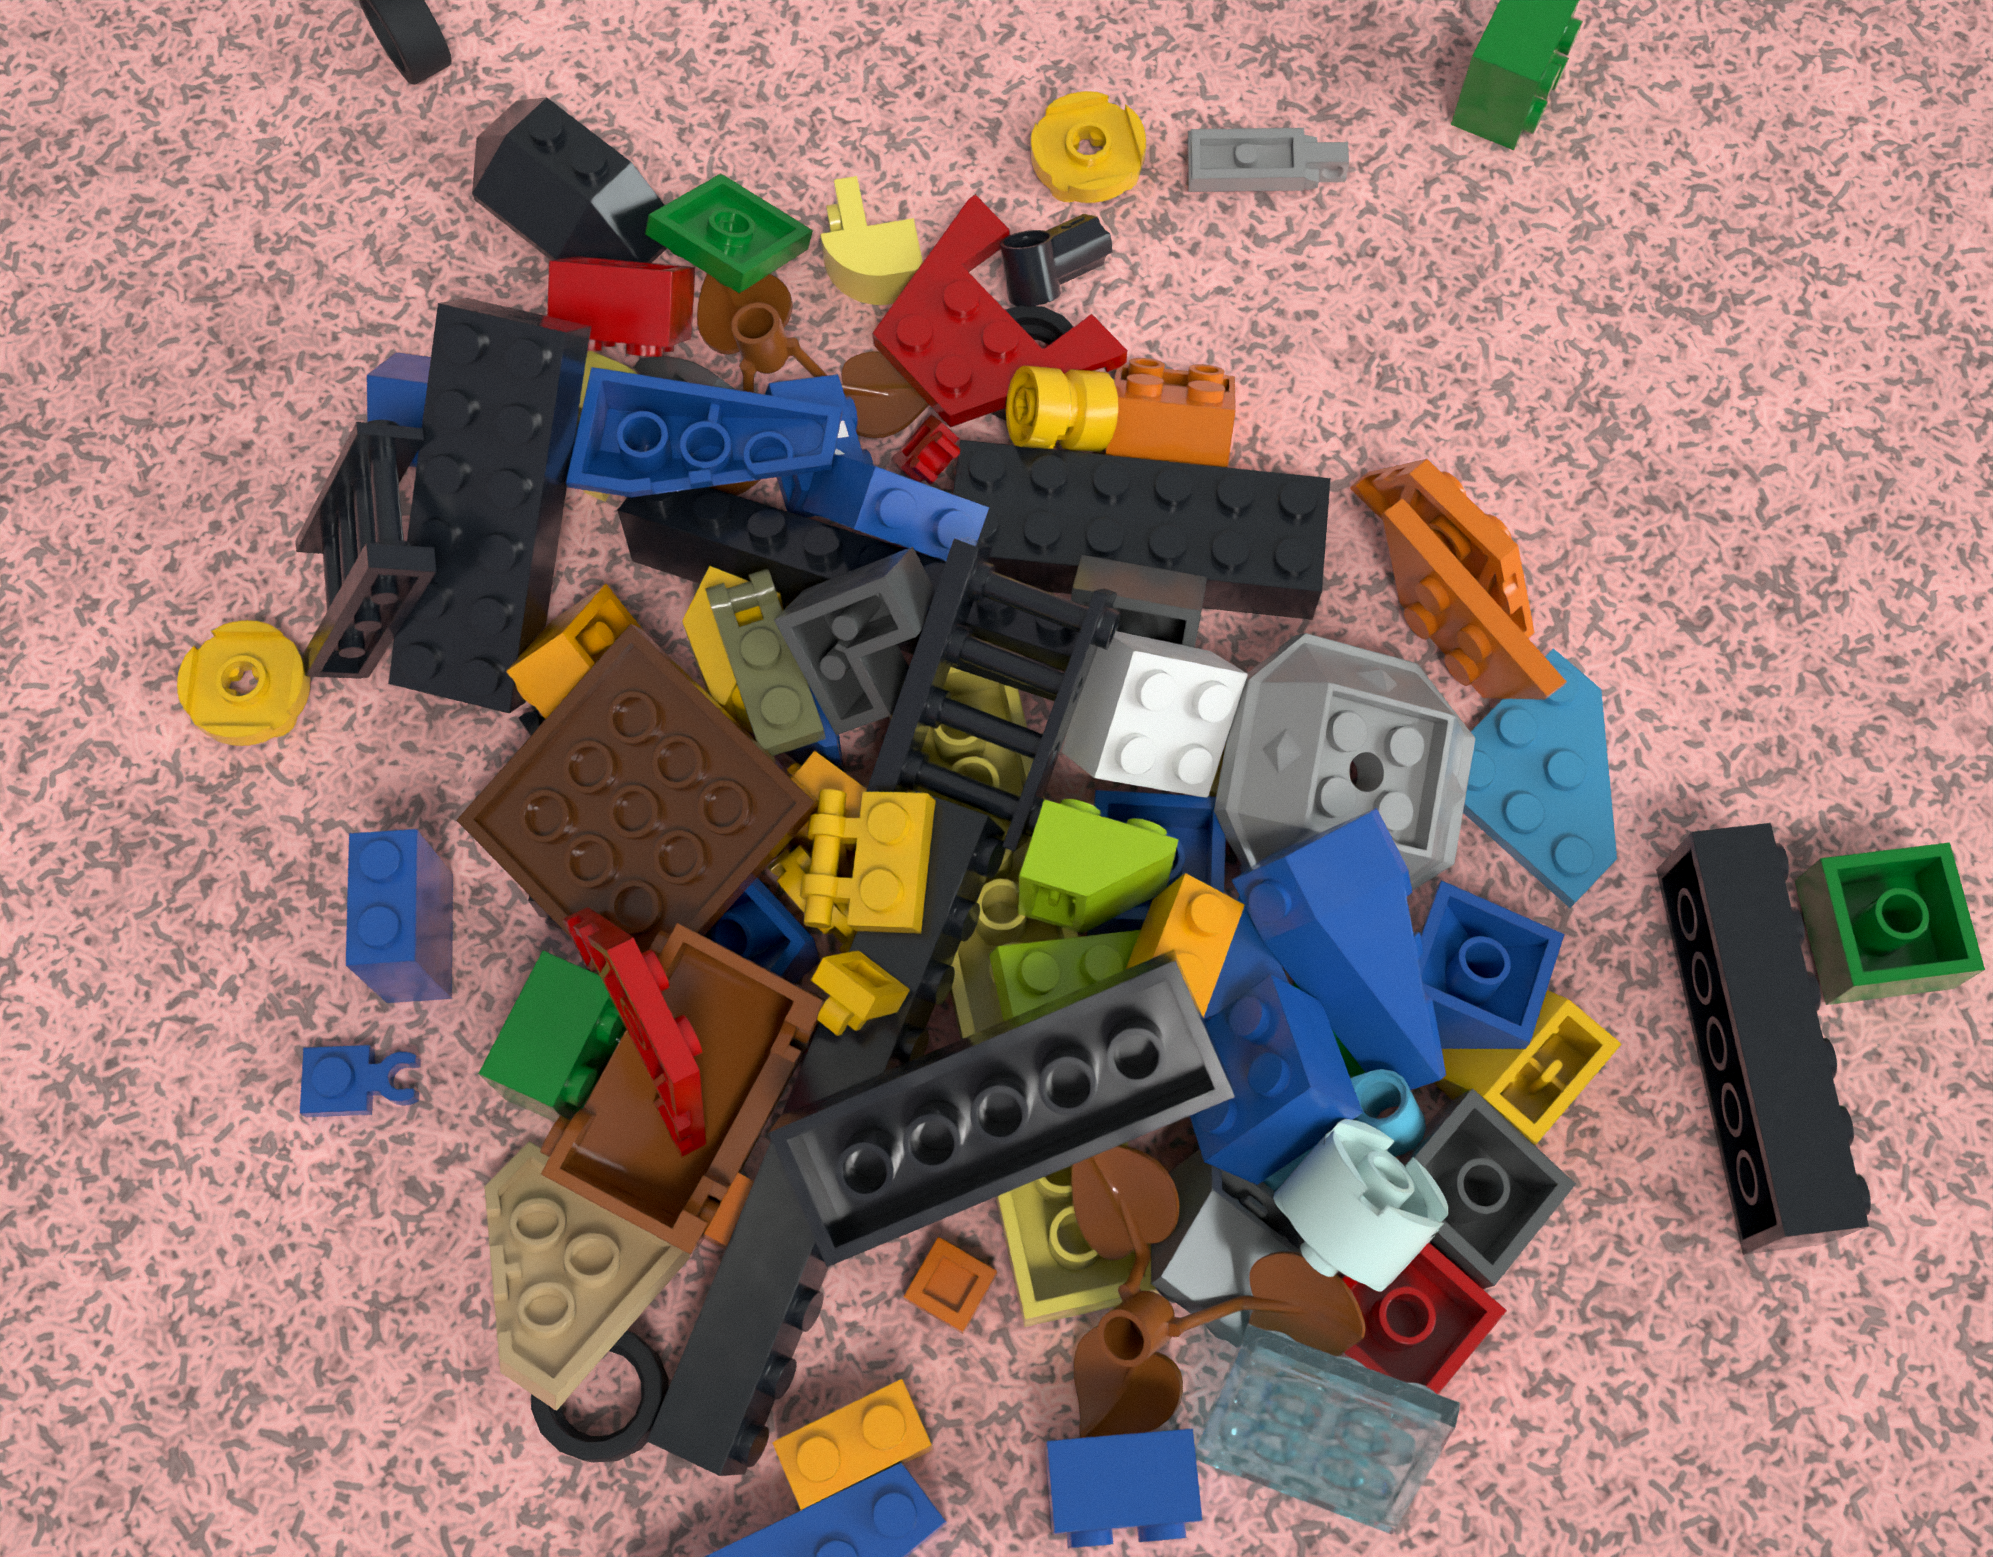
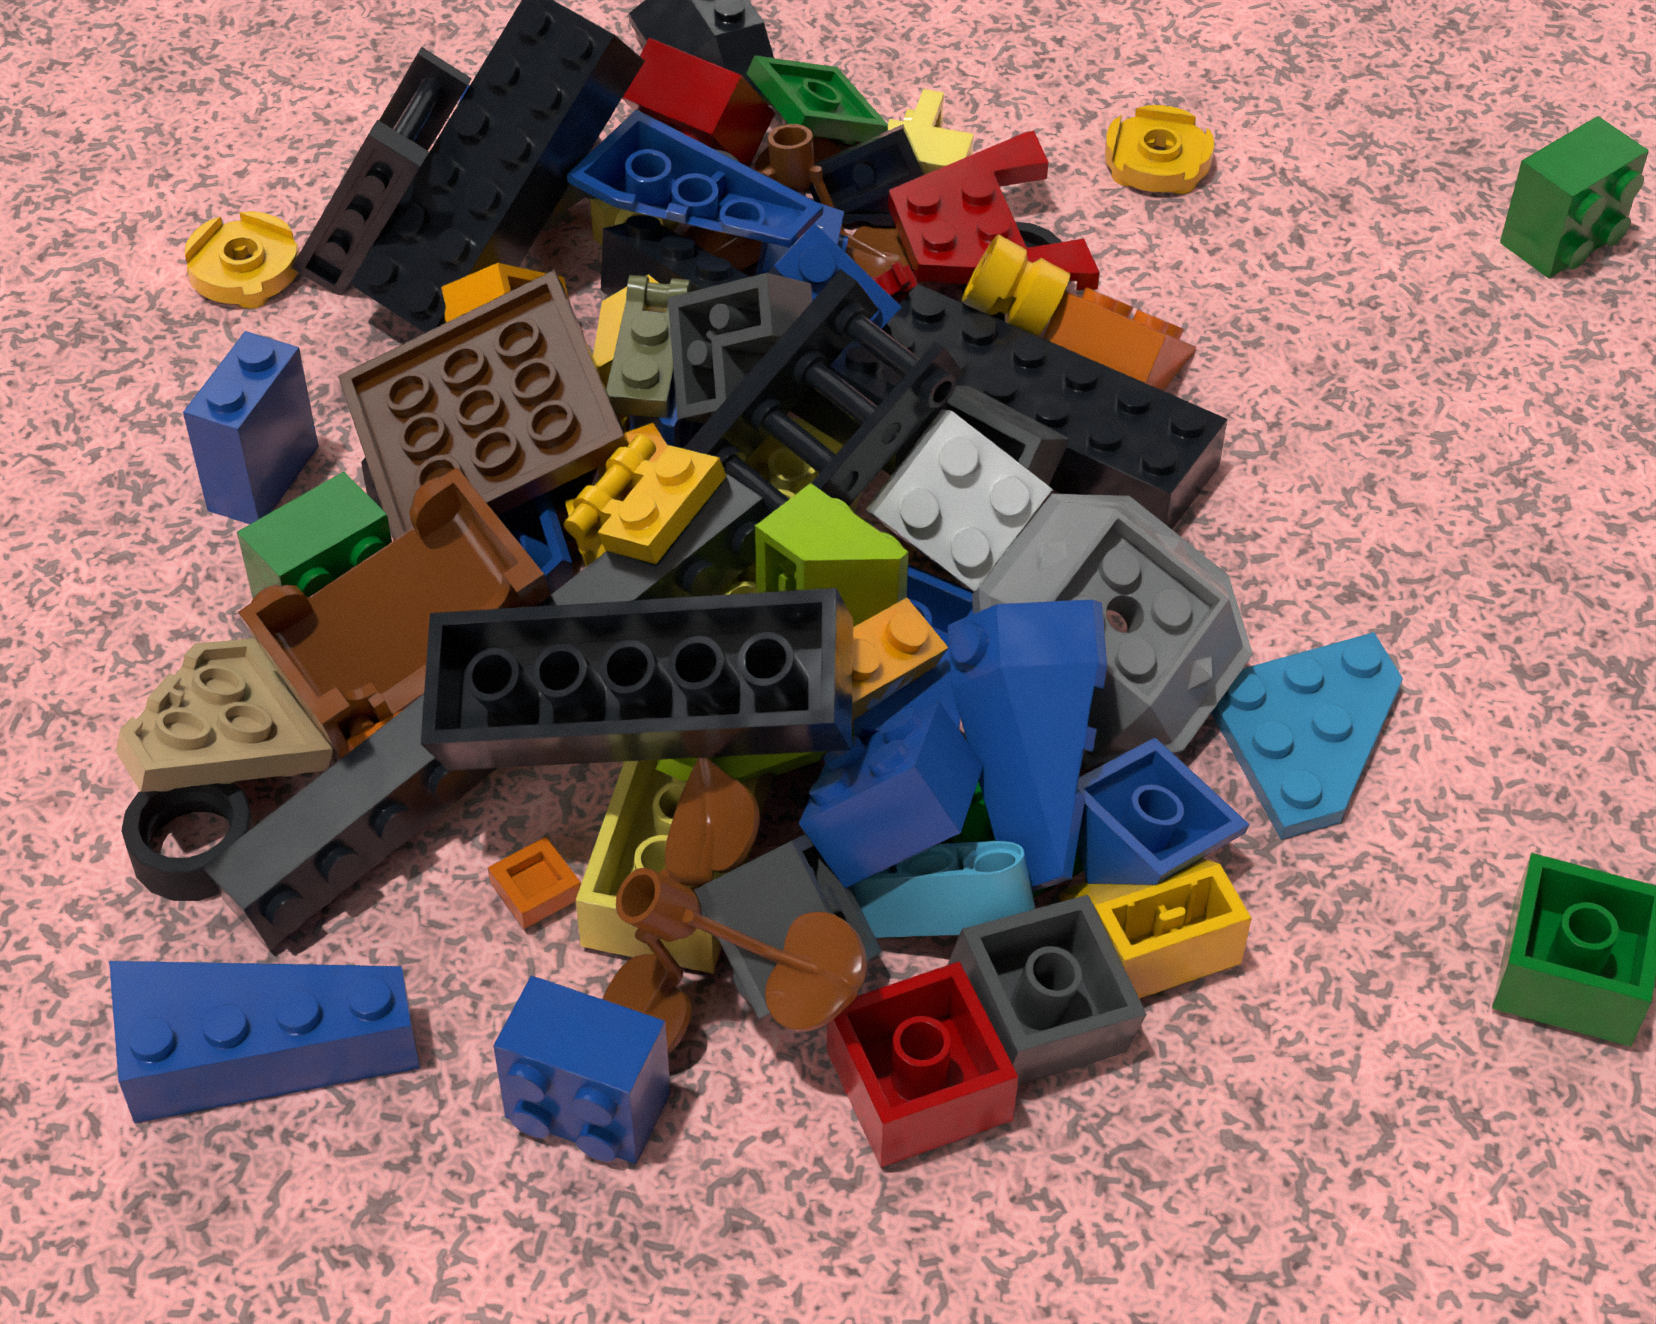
camera: 25 degrees right, 20 degrees down
(346, 1079) = (139, 543): blue plate -> none
(662, 1042) = (389, 540): red wing -> none
(838, 313) = (866, 172): none -> black wing
(852, 1444) = (381, 937): light orange brick -> none
(856, 991) = (572, 573): yellow tile -> none
(1043, 260) = (1067, 201): black piece -> none
(1262, 160) = (1309, 205): light grey hinge -> none
(1324, 1429) = (789, 1094): clear light blue plate -> none
(1361, 1206) = (917, 904): light aqua brick -> none
(1460, 616) = (1288, 554): orange wing -> none
(1472, 536) = (1321, 512): orange wing -> none
(1761, 1041) = (1397, 988): black brick -> none

